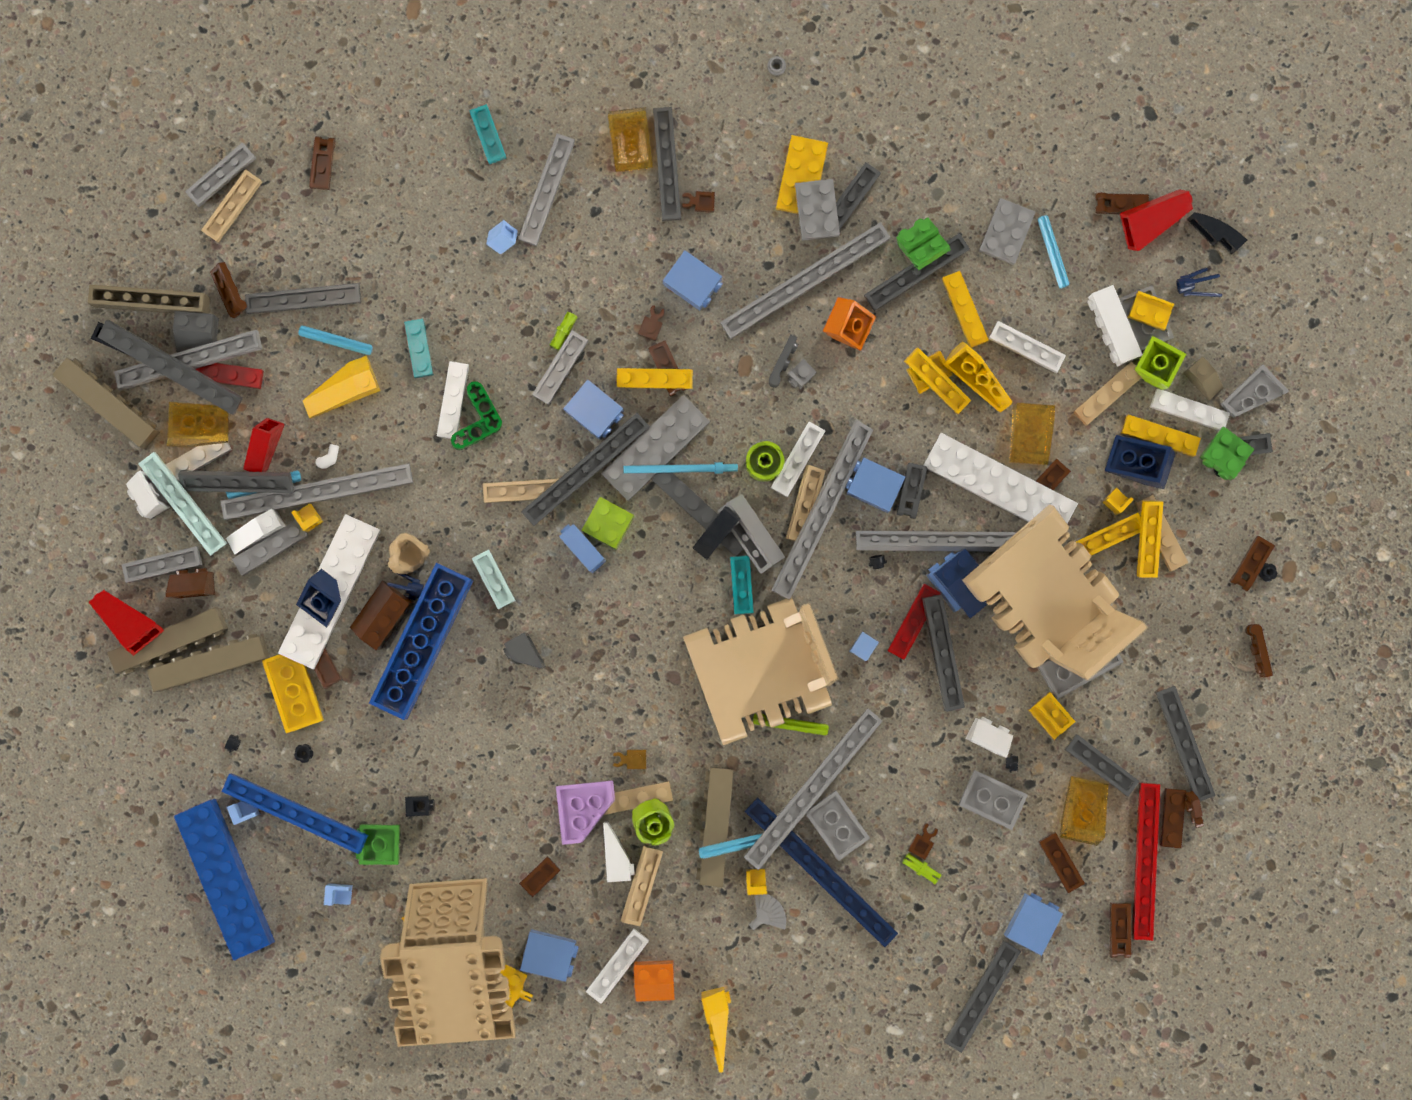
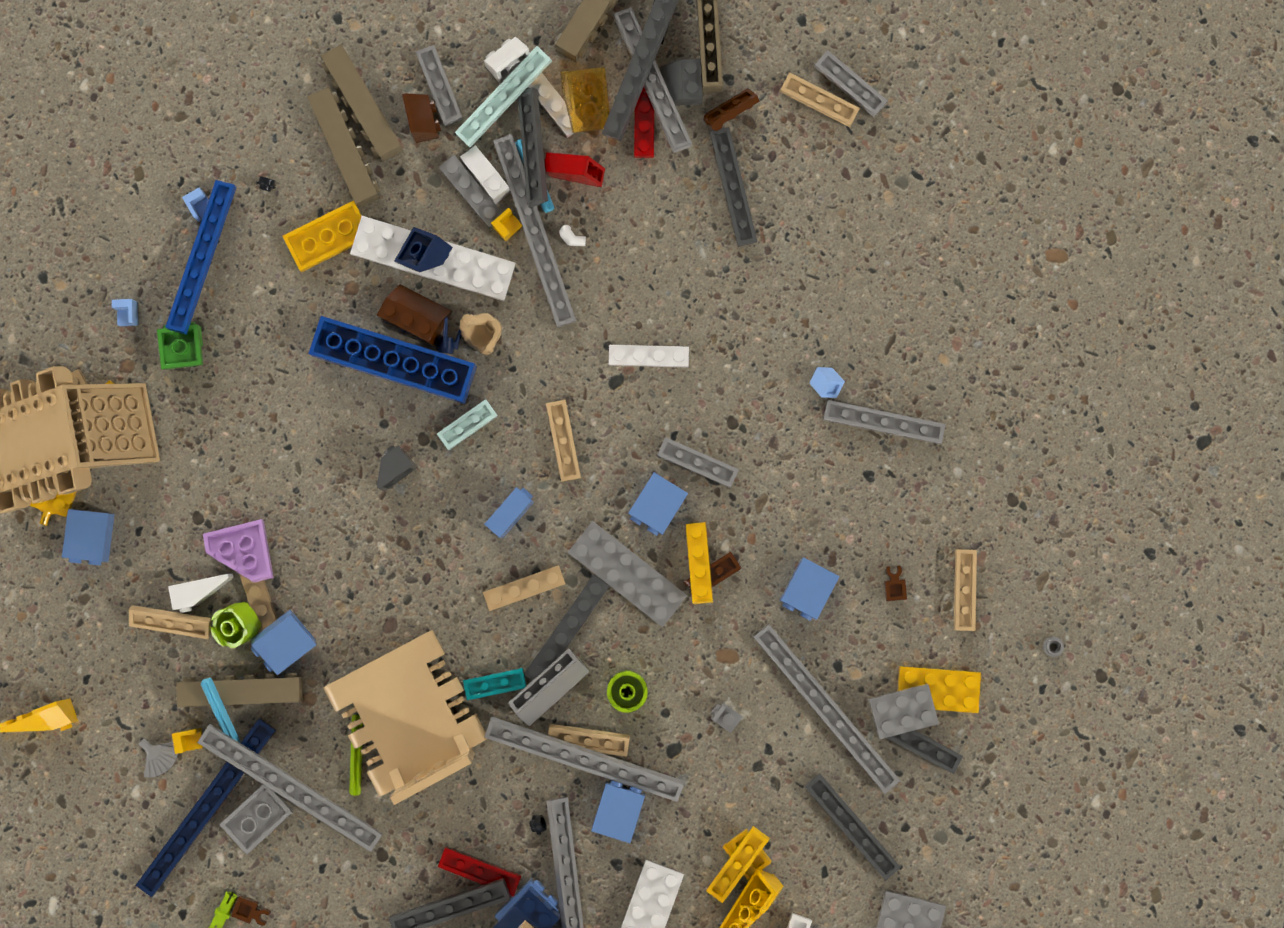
camera: 80 degrees right, 0 degrees up
(126, 623) = (371, 59): red slope -> none
(224, 879) = (127, 196): blue brick -> none
(303, 758) = (260, 256): black plate -> none
(322, 163) = (878, 185): reddish brown plate -> none
(327, 671) = (351, 268): reddish brown plate -> none
(335, 340) = (694, 227): medium azure axle -> none
(345, 386) = (651, 247): yellow wedge -> none
(413, 809) = (219, 377): black brick -> none
(418, 348) = (698, 313): teal plate -> none
(483, 423) = (627, 390): green beam -> none
(488, 134) = (934, 352): teal plate -> none
(540, 876) = (167, 515): reddish brown plate -> none
(563, 330) = (737, 460): lime pin -> none
(585, 469) = (593, 504): dark grey plate -> none
(608, 523) = (540, 535): lime brick -> none
(617, 966) = (85, 608): white plate -> none
(630, 139) = (951, 502): clear yellow slope -> none
(634, 759) = (300, 596): pearl gold plate -> none
(651, 326) = (755, 551): reddish brown plate -> none
(654, 980) = (75, 648): orange slope -> none
(655, 546) = (524, 588): none -> tan plate
(667, 164) = (930, 544): dark grey plate -> none
(675, 779) = (282, 642): none -> medium blue brick
(713, 138) = (965, 590): none -> tan plate
(716, 533) = (543, 650): black slope -> none
(717, 468) = (614, 641): medium azure bar -> none
(783, 363) = (735, 696): dark grey plate -> none
(798, 459) = (635, 726): white plate -> none
(849, 323) = (787, 761): orange slope -> none
(863, 646) = (446, 821): light blue panel -> none
(912, 489) = (618, 851): dark grey plate -> none
(922, 243) = (883, 829): bright green plate -> none
(965, 309) = (820, 883): yellow plate -> none

